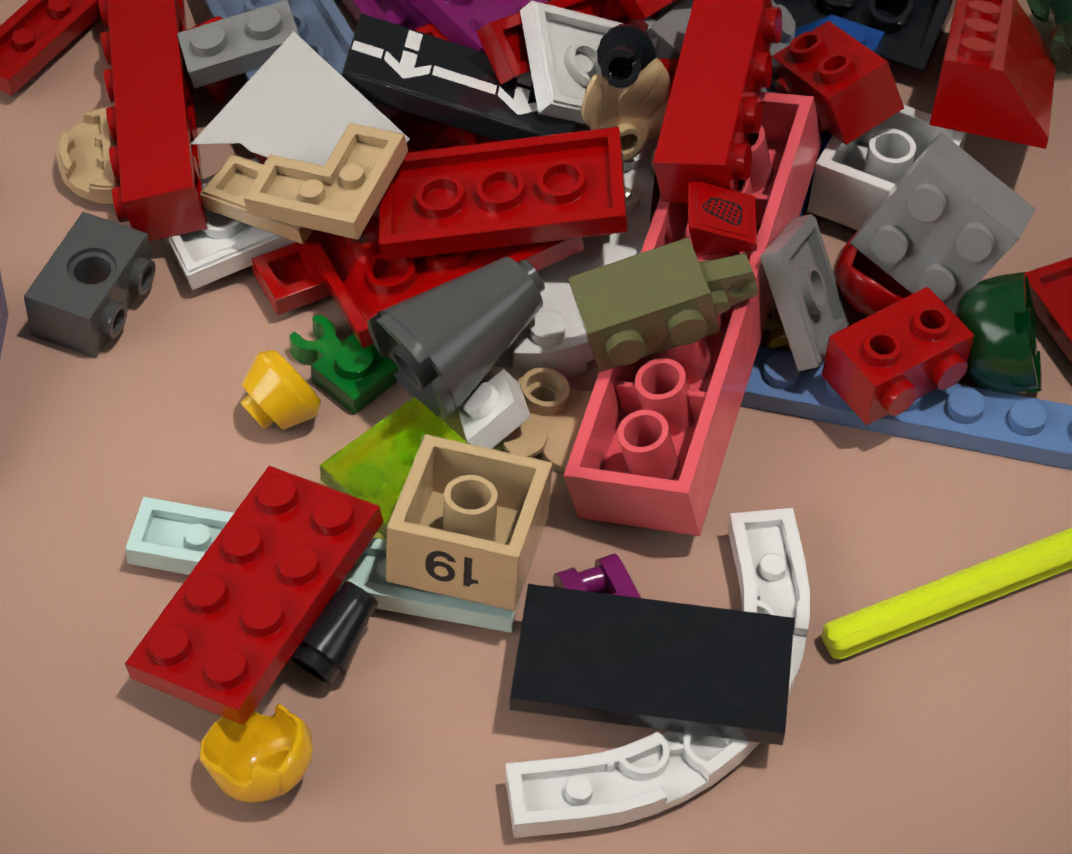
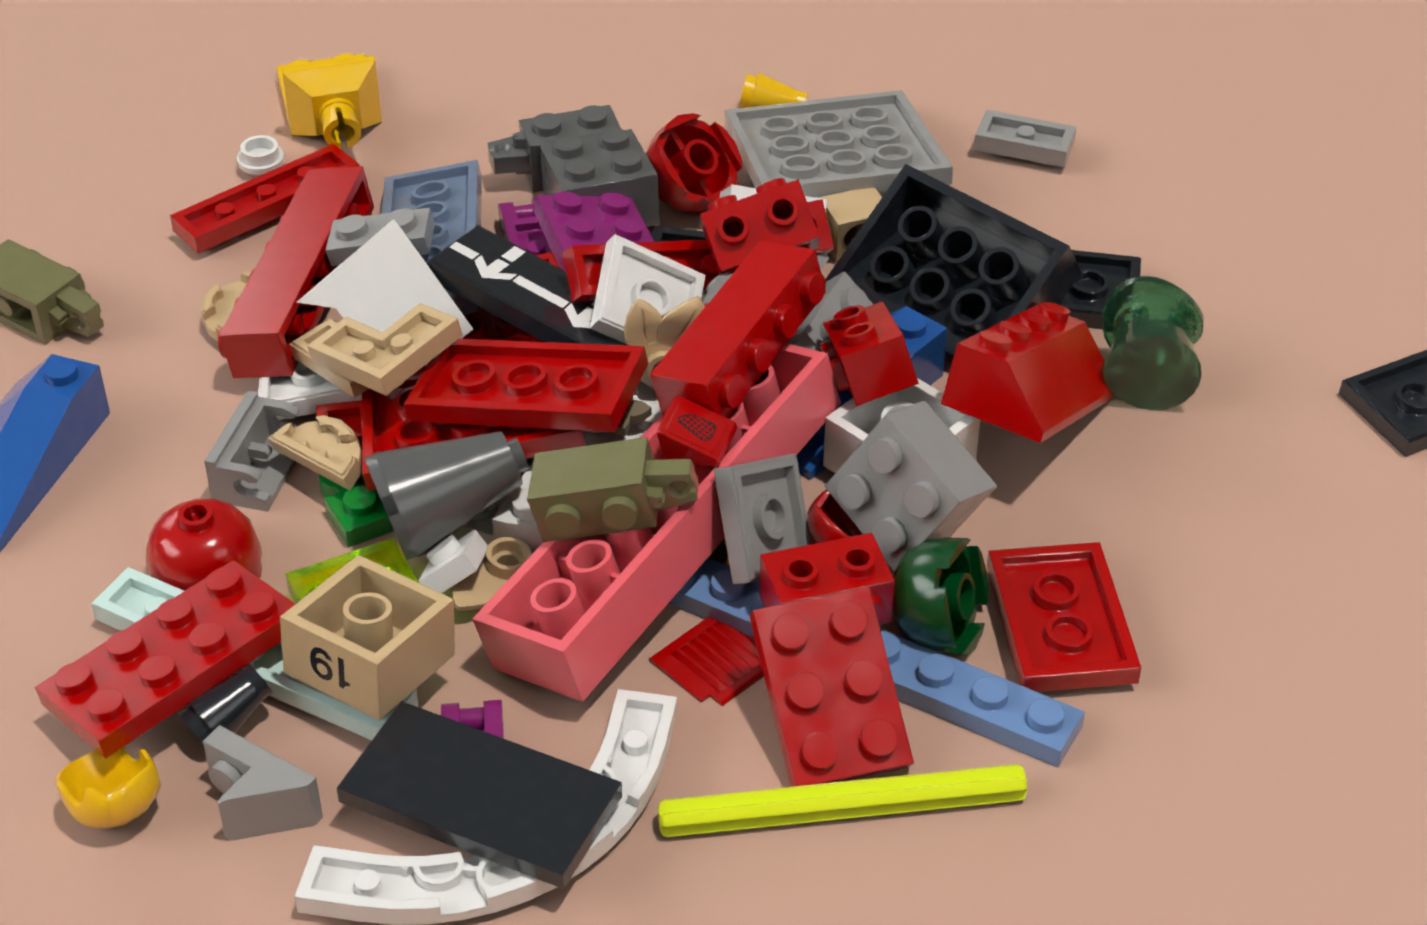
camera: 20 degrees right, 10 degrees down
(90, 285) = (175, 400): dark grey brick -> none
(210, 329) = (243, 462): none -> light grey hinge
(210, 454) = (198, 539): none -> red cylinder
(278, 392) = (282, 511): yellow cone -> none
(291, 308) = (324, 447): none -> tan plate
(426, 711) = (258, 788): none -> light grey slope
(626, 52) = (676, 286): black arm -> none
(798, 454) = (711, 661): none -> red window
(948, 465) = (831, 688): none -> red plate

